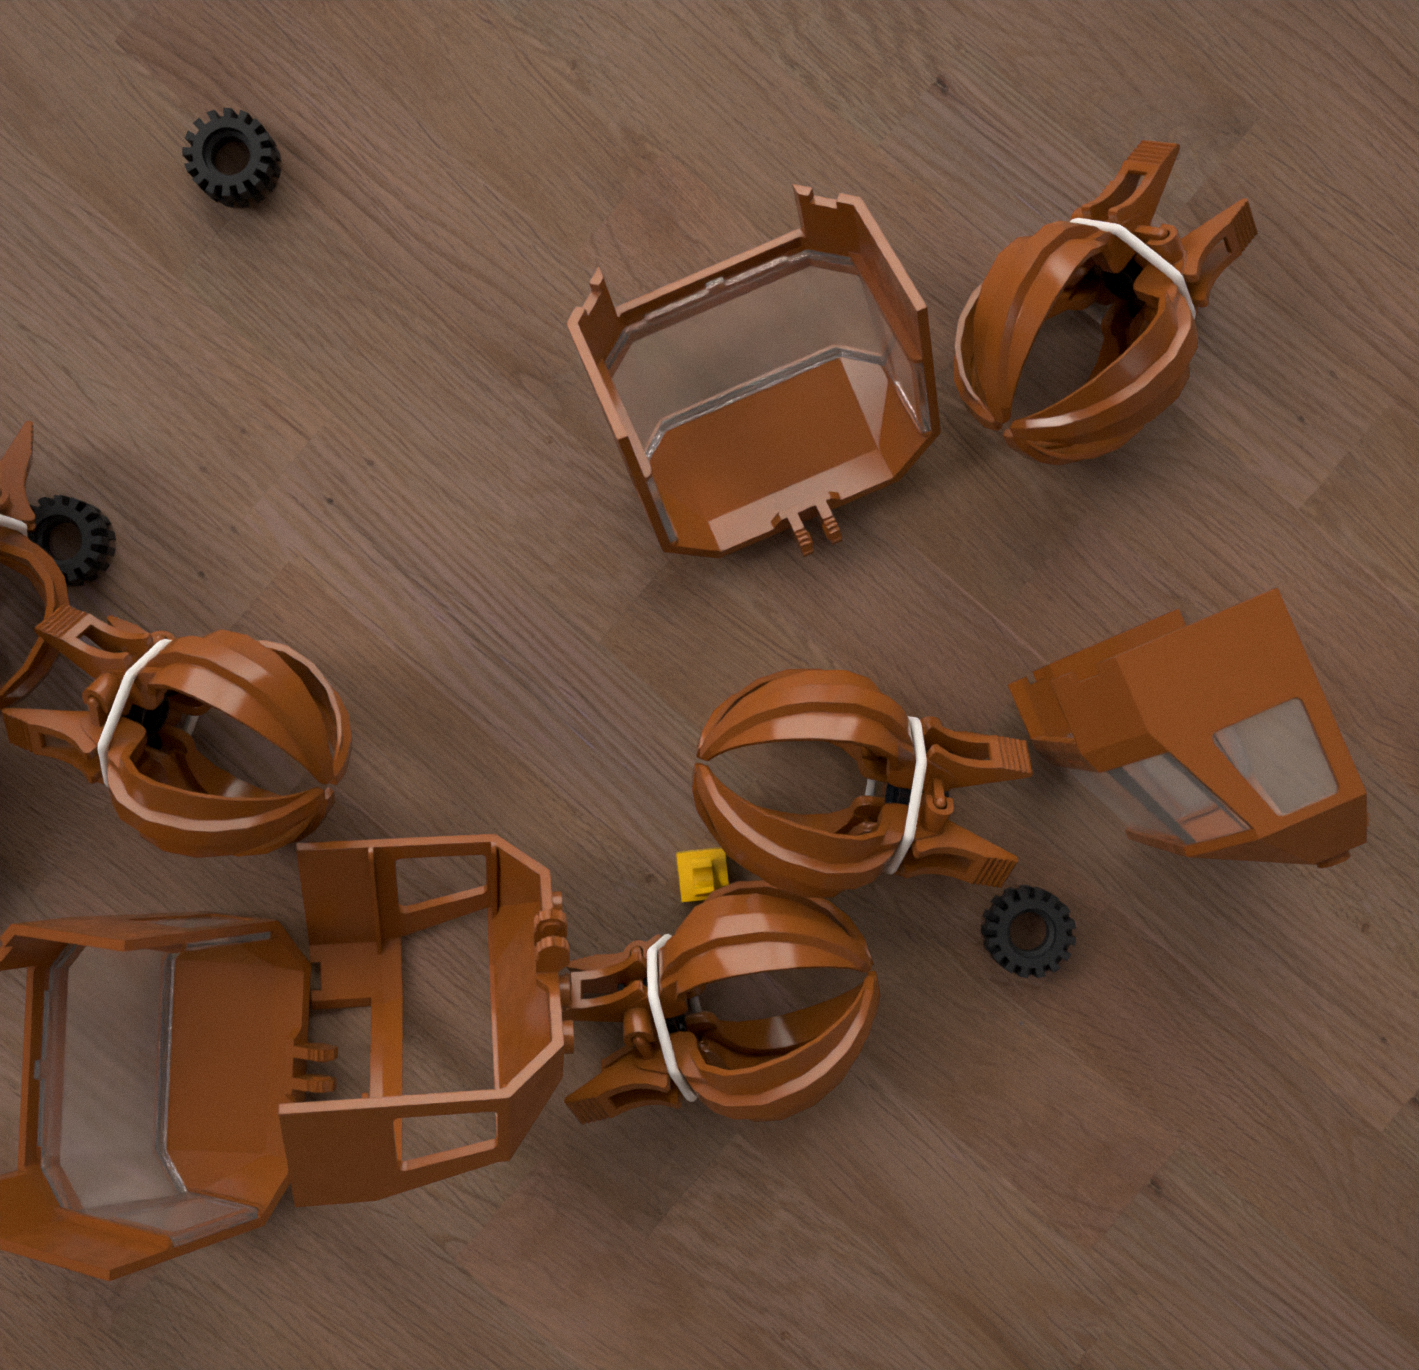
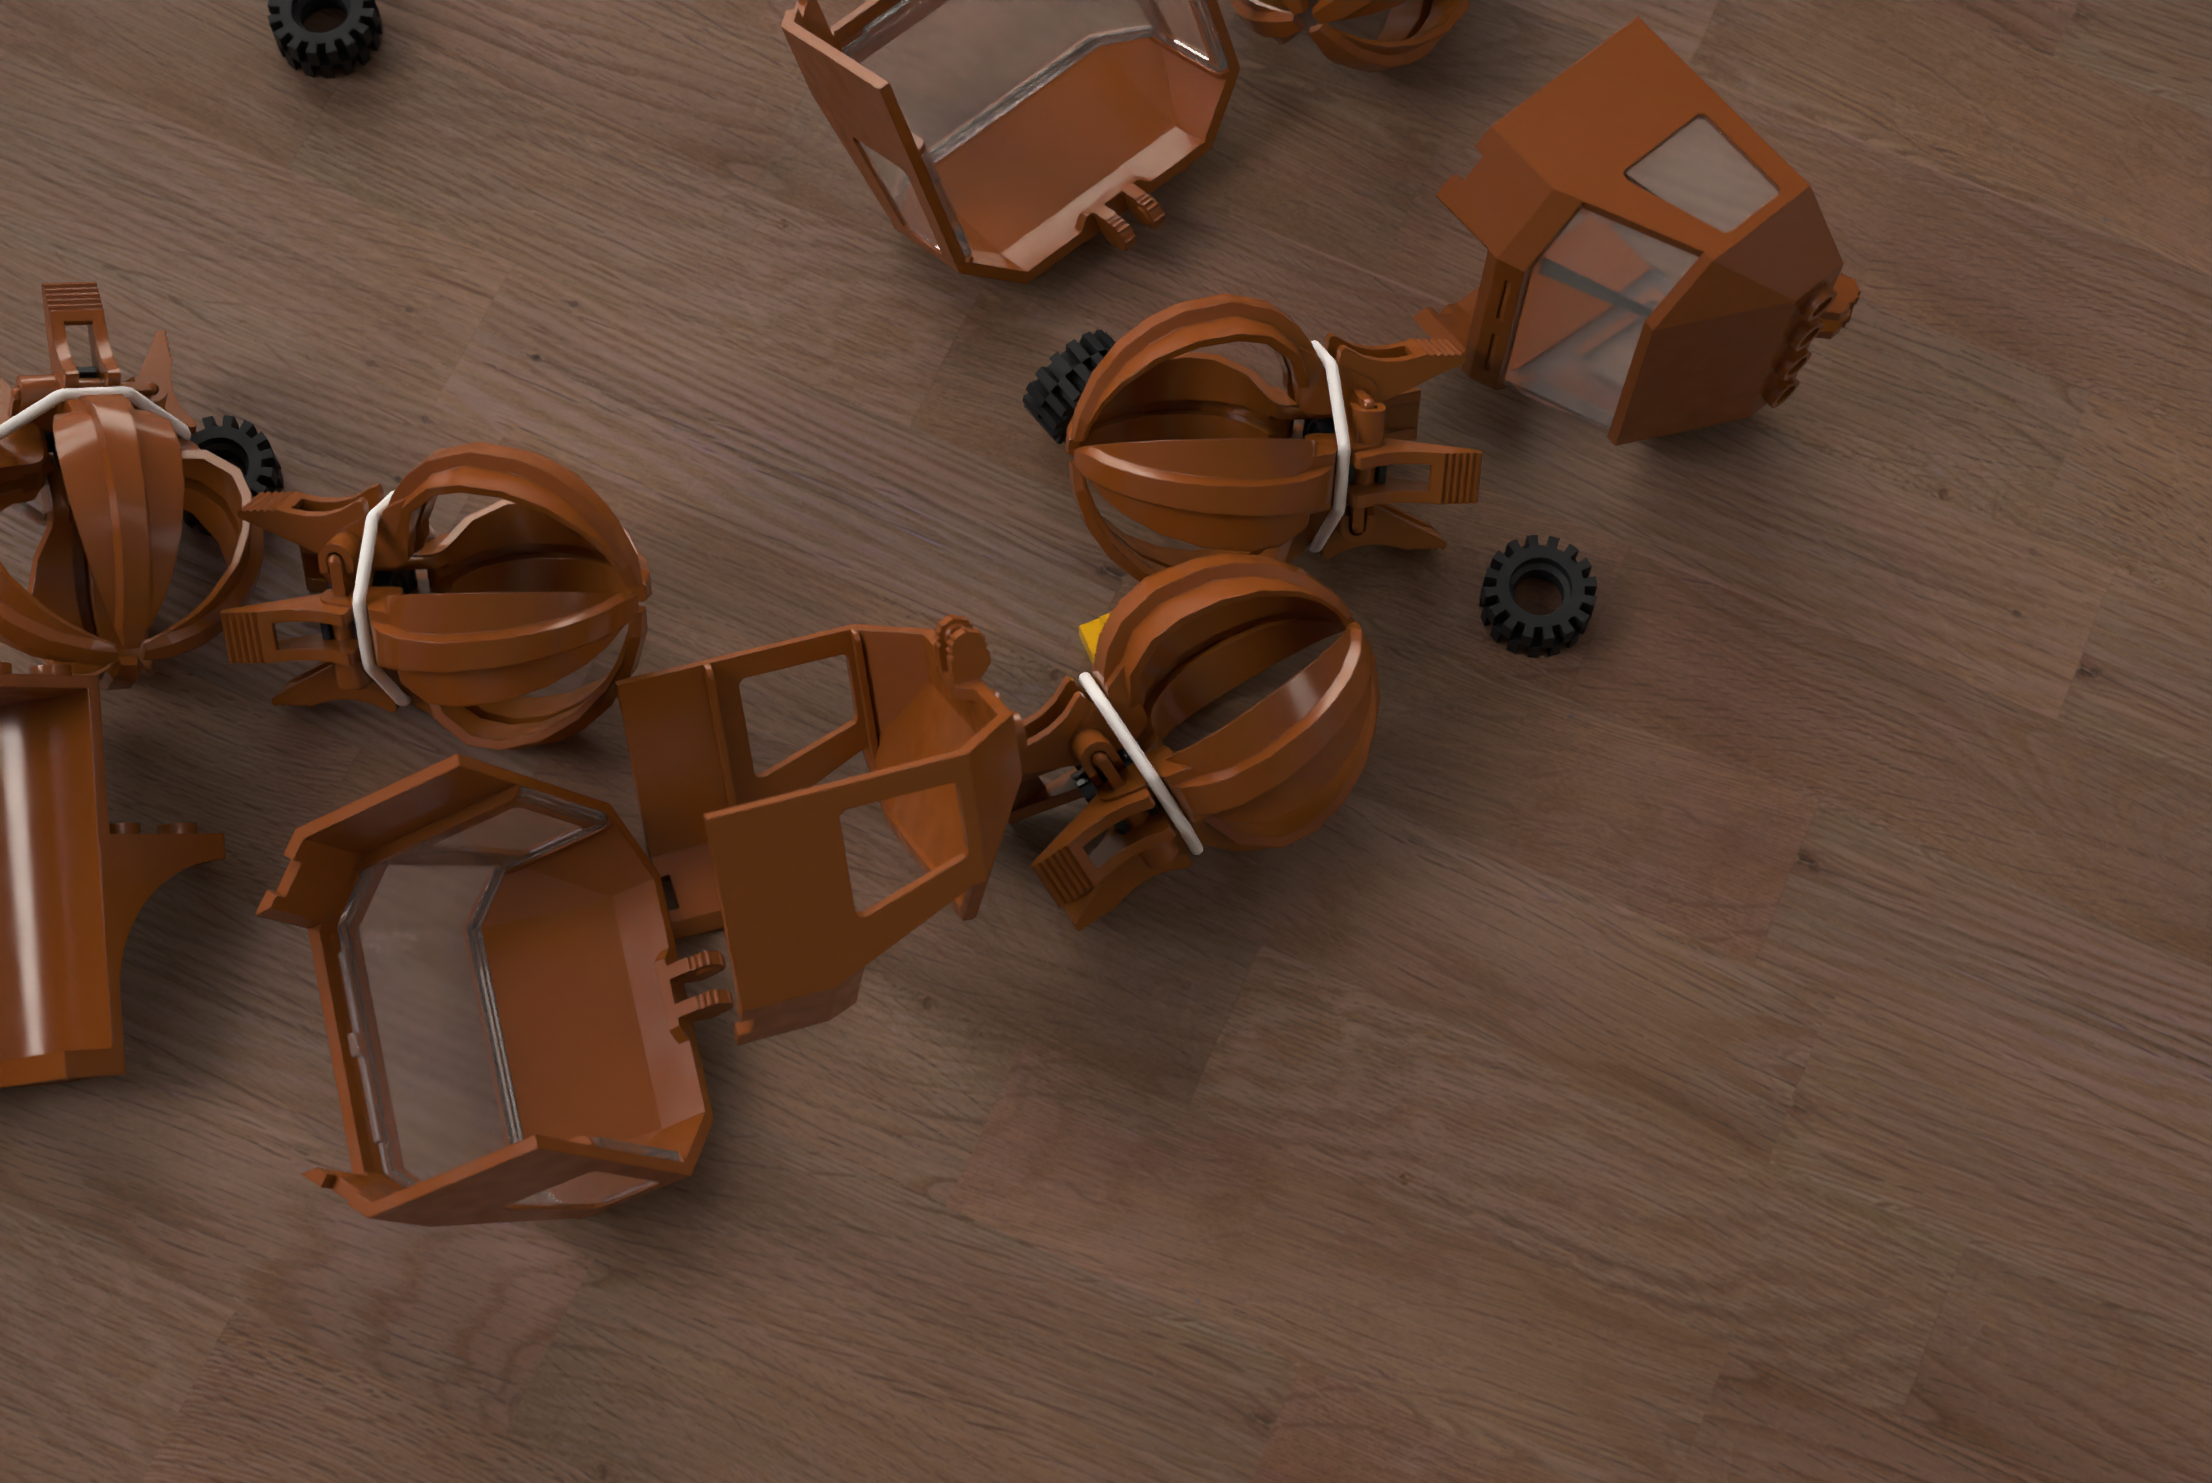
camera: 15 degrees left, 20 degrees down
(733, 666) = (1061, 384): none -> black tyre

